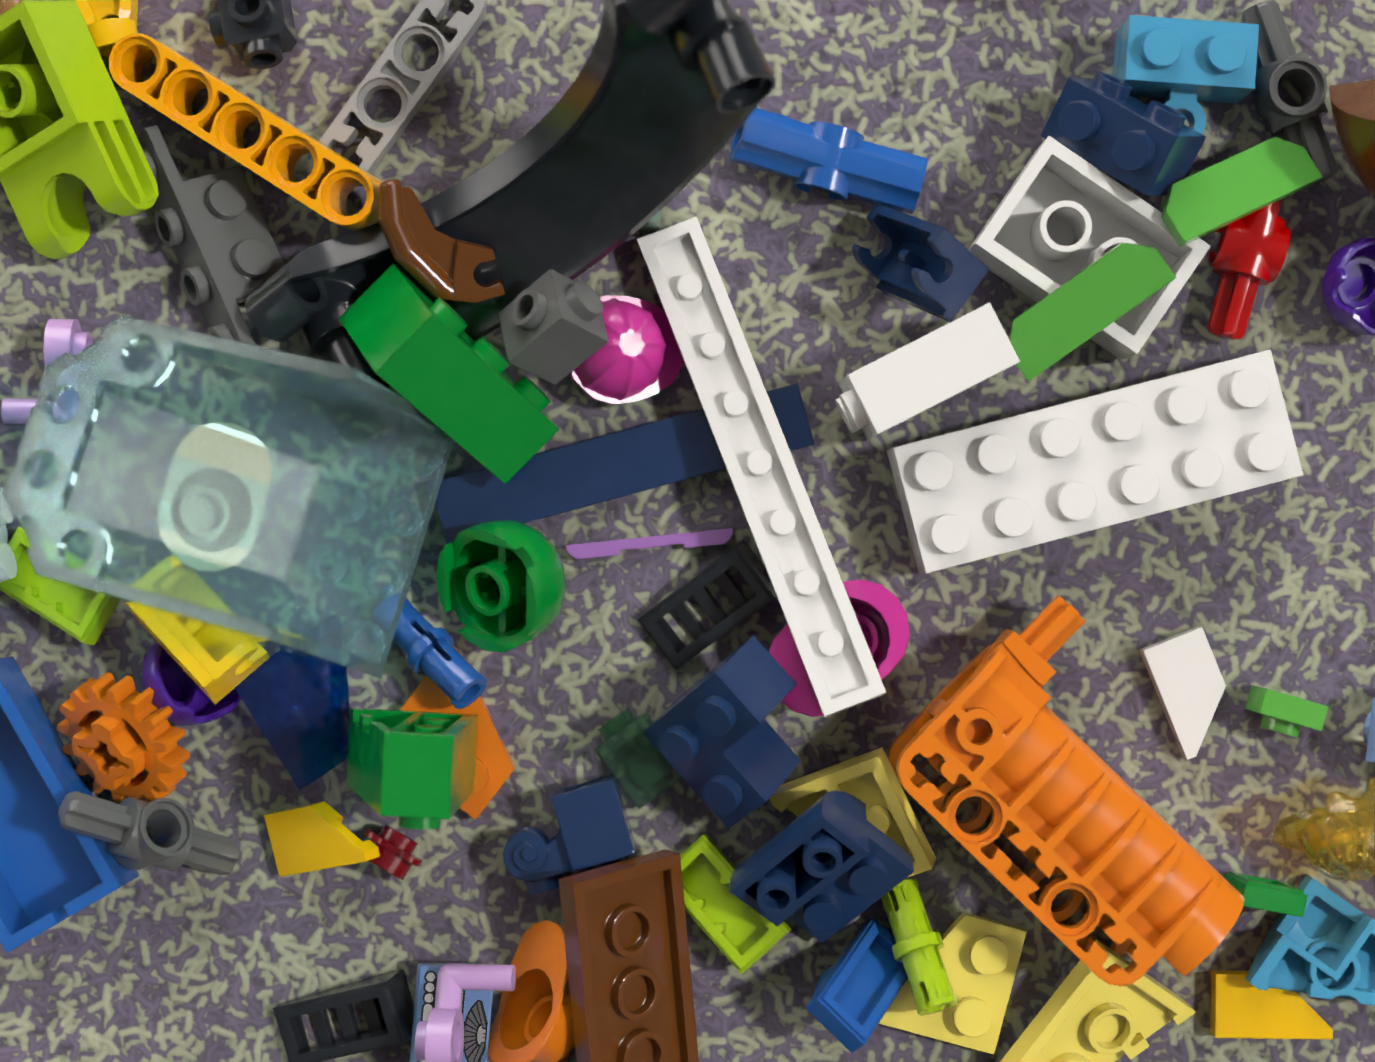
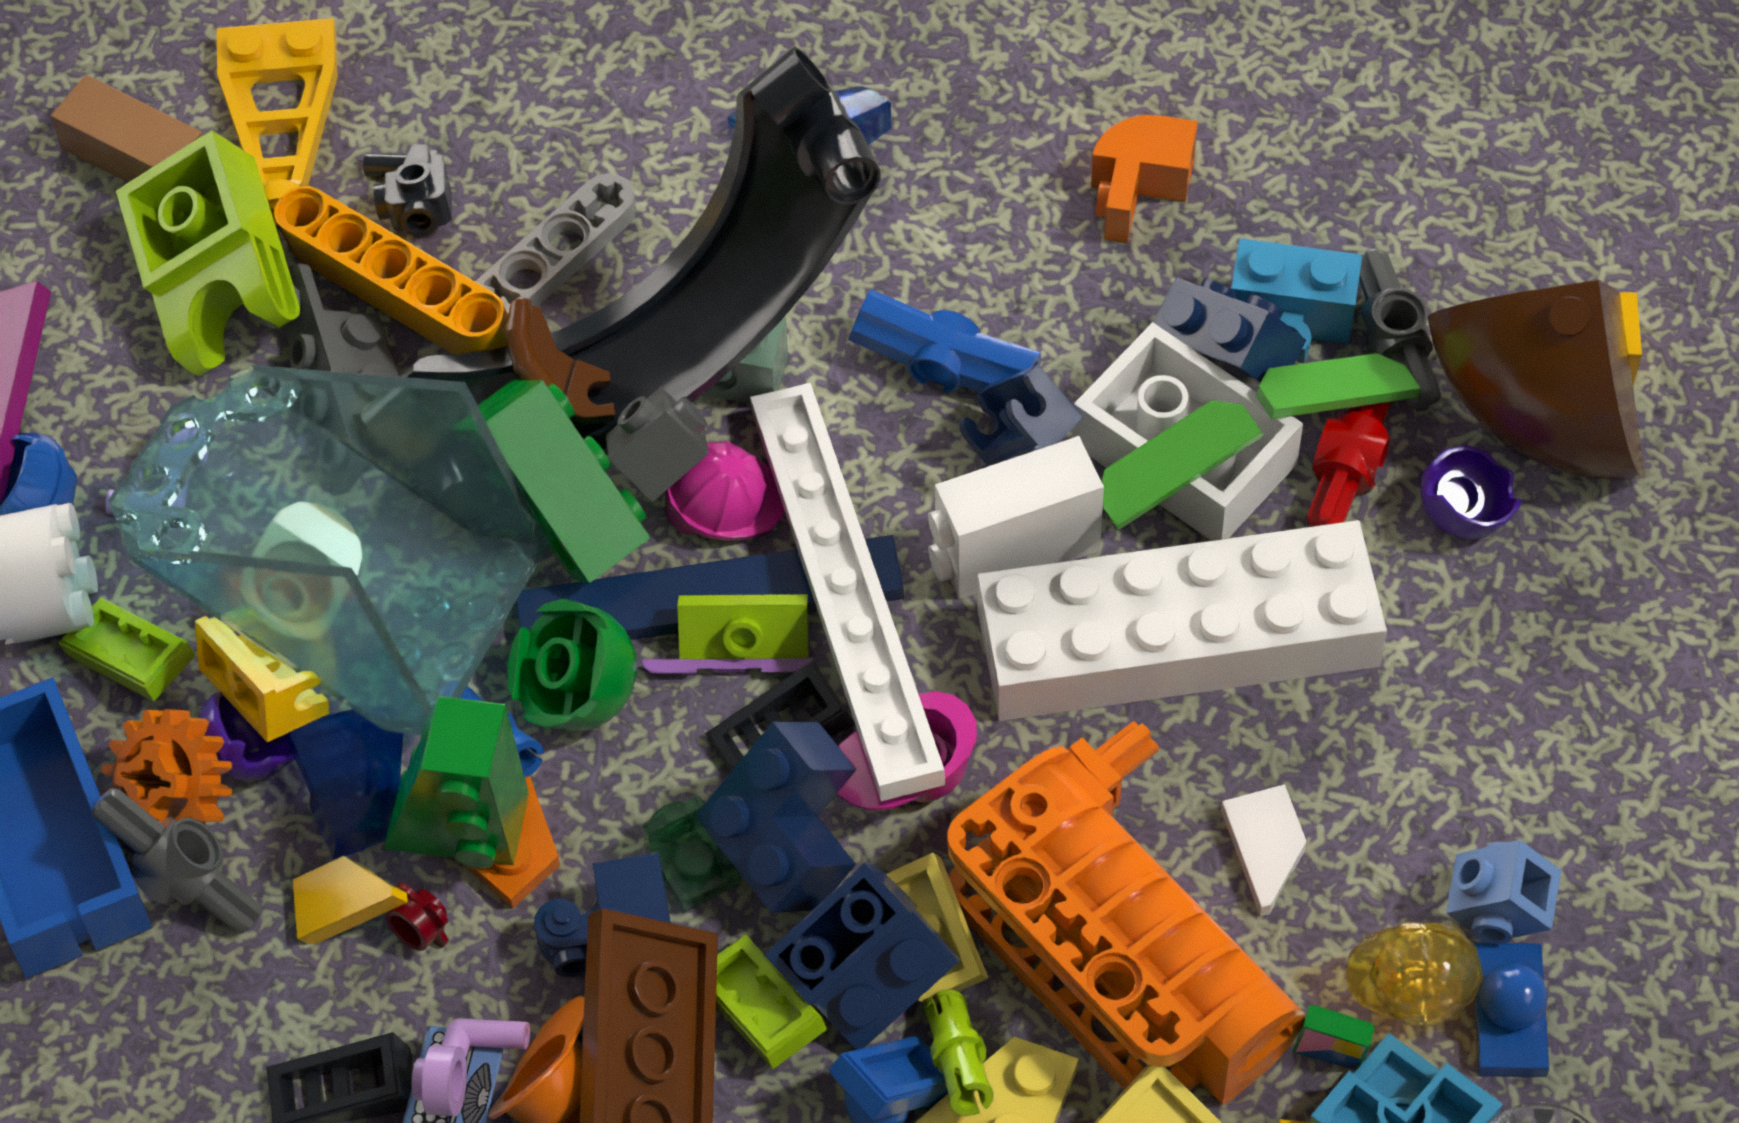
camera: 10 degrees right, 30 degrees down
(662, 507) = (743, 626): none -> lime plate
(1285, 712) = (1366, 863): bright green plate -> none

